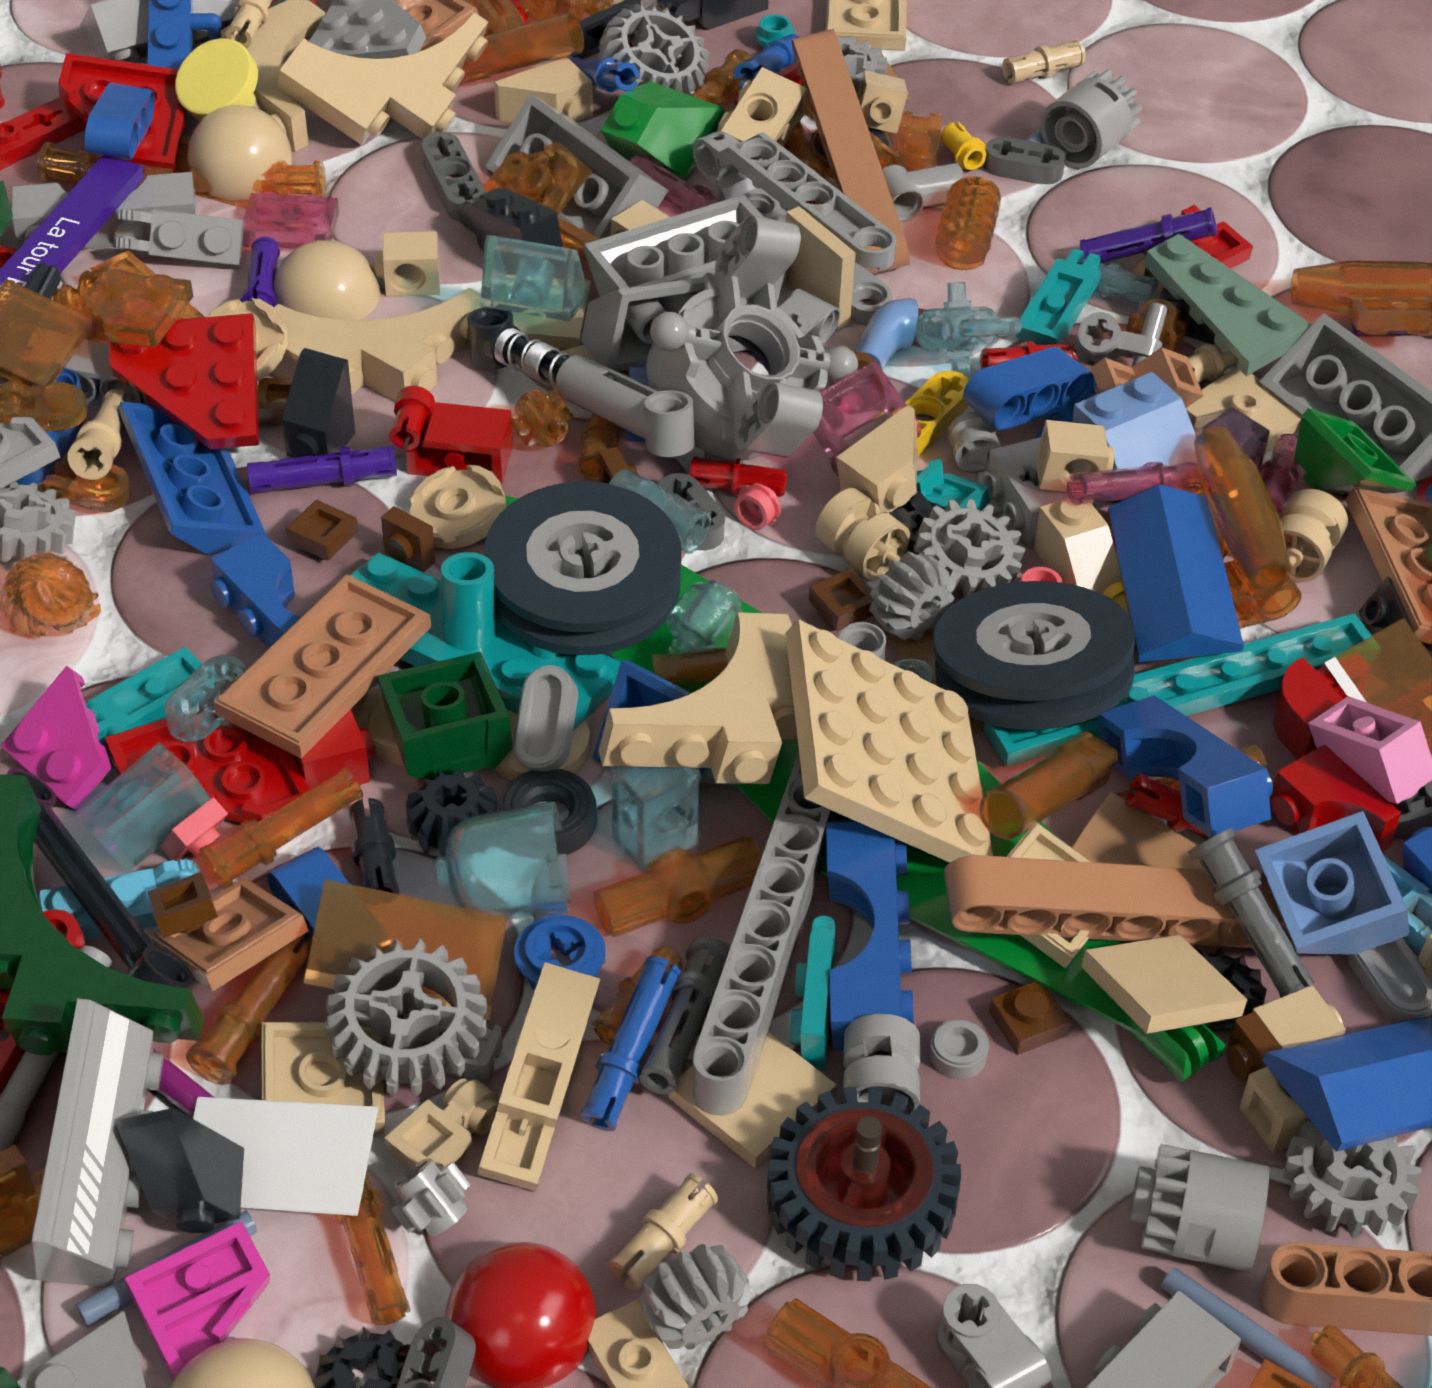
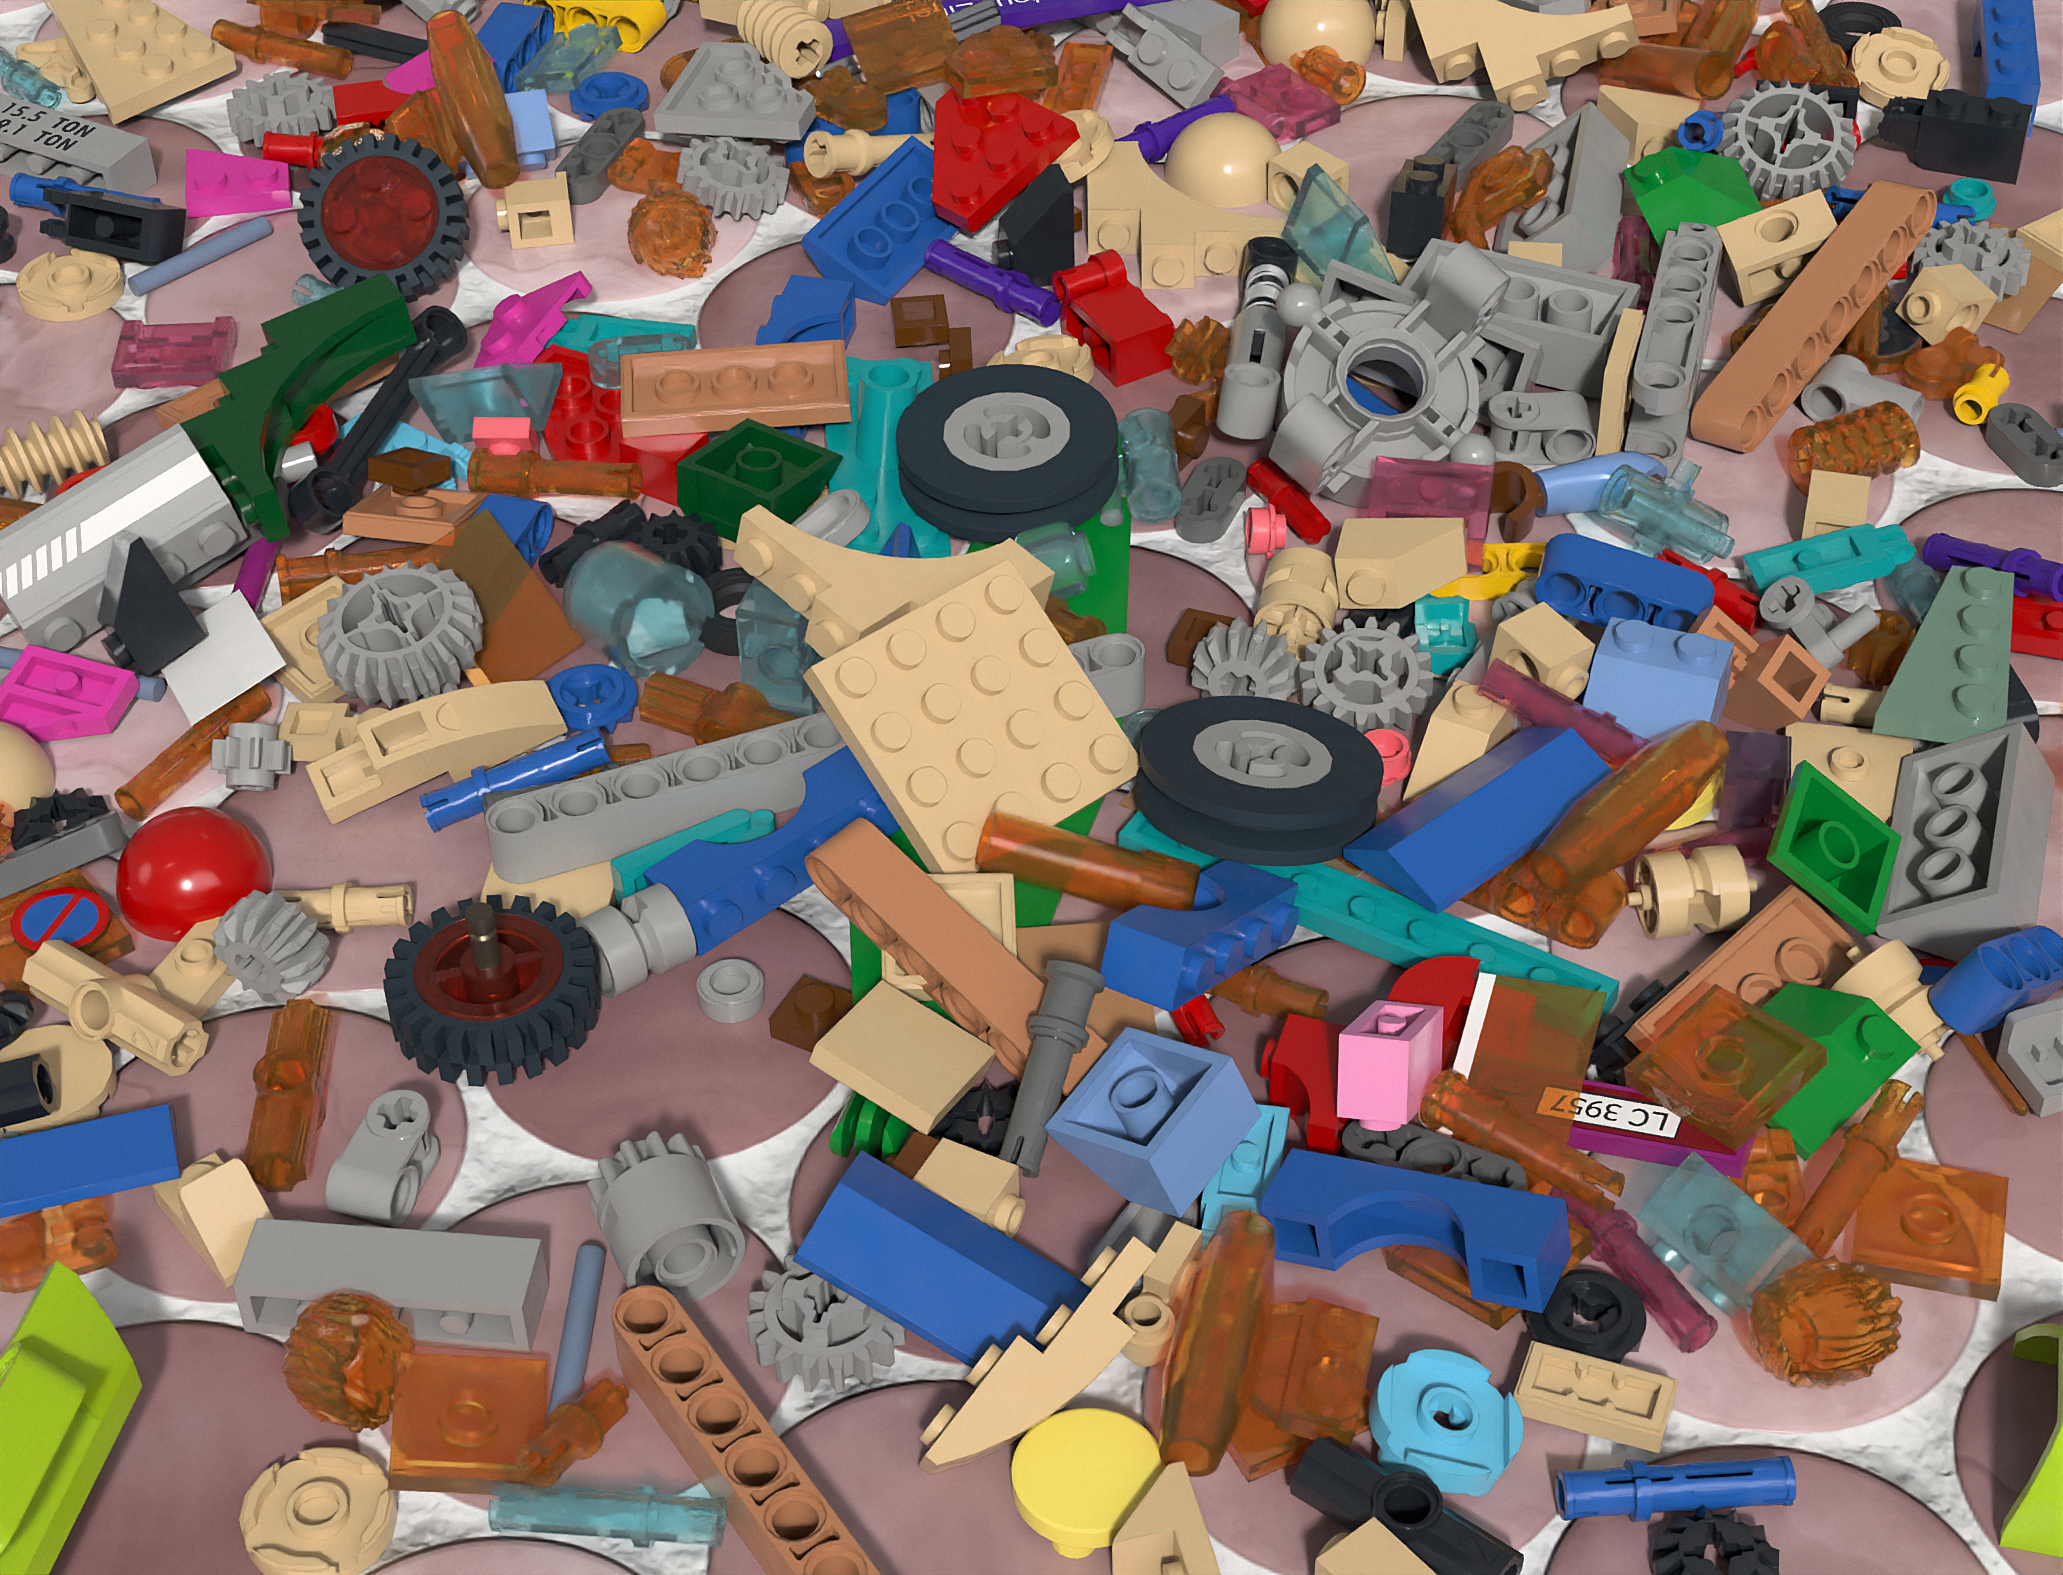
camera: 55 degrees right, 5 degrees down
(1016, 267) = (1835, 502): none -> tan brick

